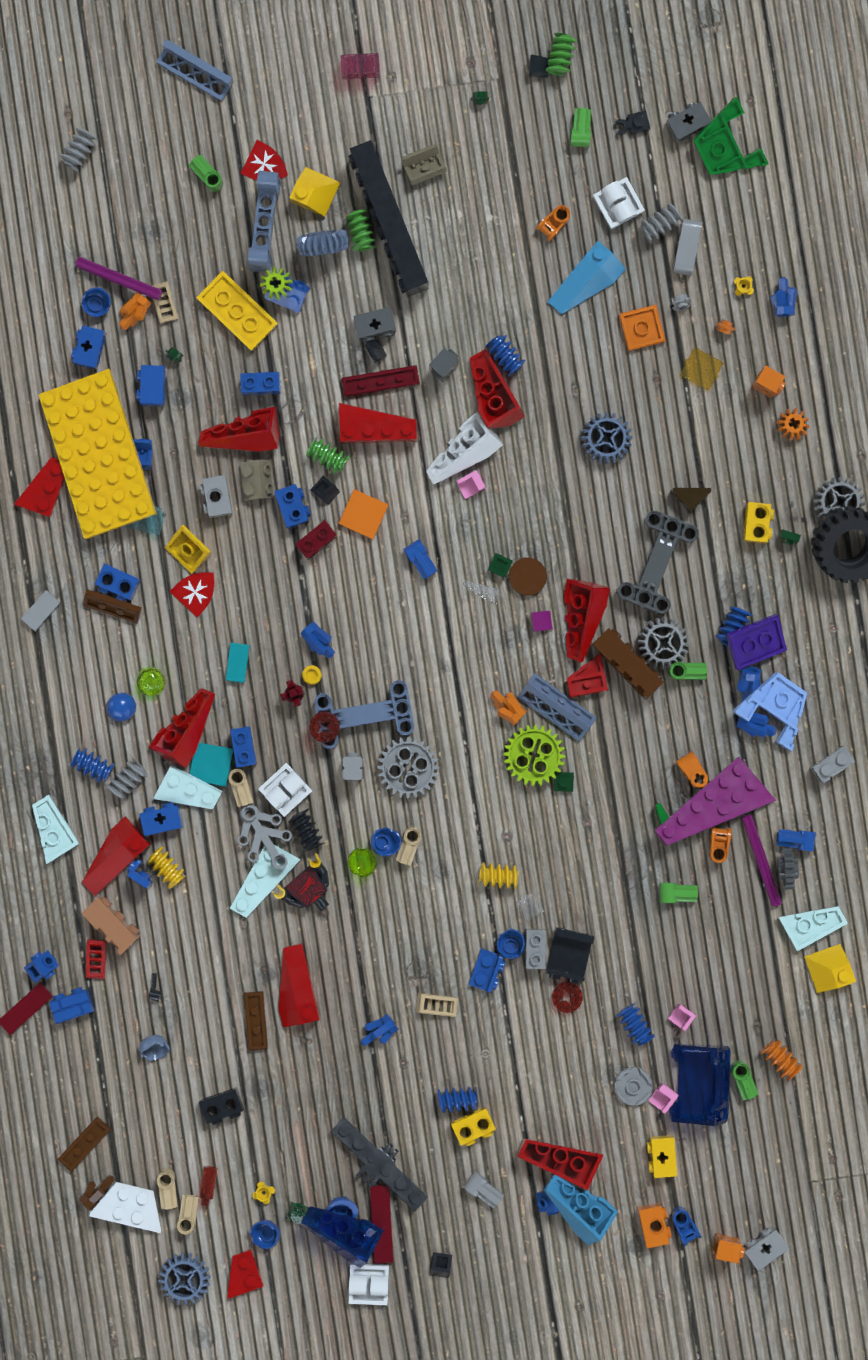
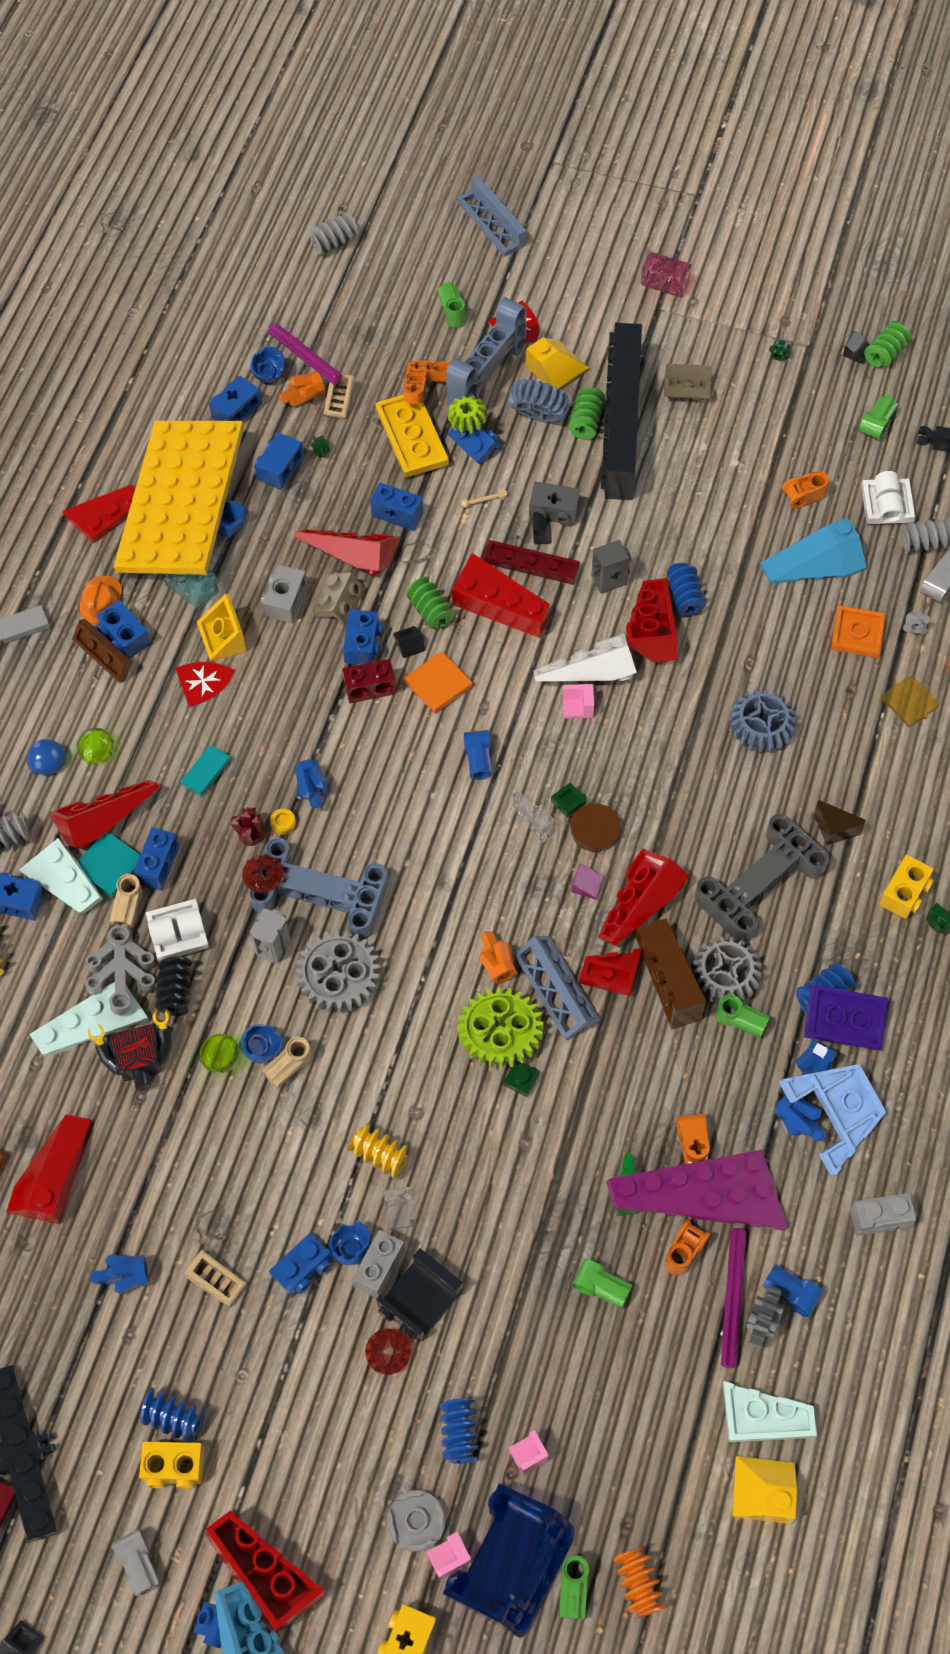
camera: 25 degrees right, 25 degrees down
(83, 561) = (98, 596): none -> orange piece
(218, 254) = (418, 374): none -> orange beam
(330, 331) = (502, 494): none -> tan hinge

